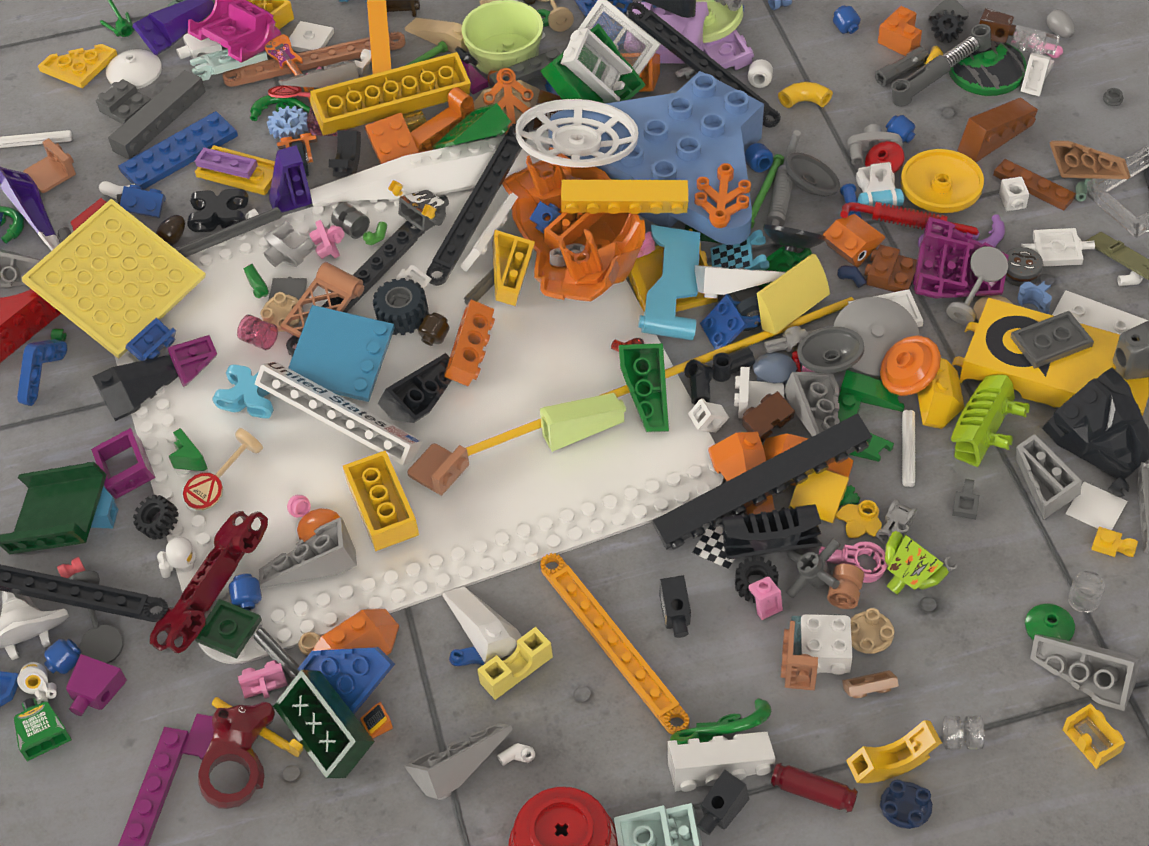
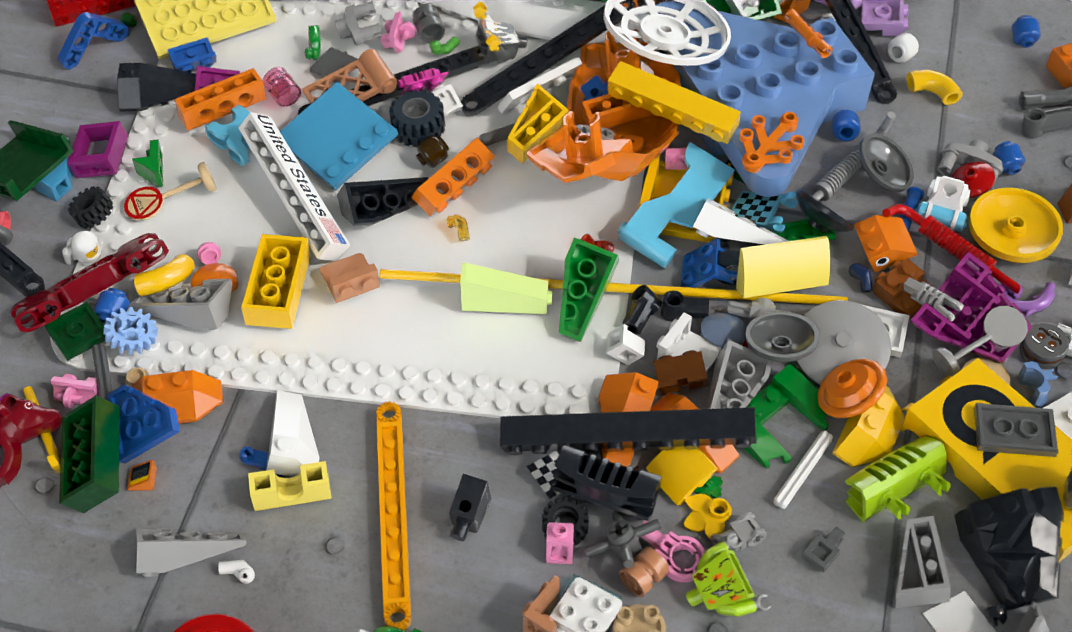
camera: 25 degrees right, 0 degrees up
(209, 367) = (217, 99): none -> orange brick
(277, 543) = (164, 276): none -> yellow cylinder
(278, 309) = (313, 73): tan dish -> none
(279, 604) = (130, 331): none -> light blue gear
(382, 272) = (428, 81): none -> dark pink hinge
(503, 380) = (461, 226): none -> clear yellow arm
(702, 94) = (813, 38): none -> orange pin
(778, 160) = (798, 180): bright green bar -> none
(914, 266) = (925, 293): none -> light grey hinge

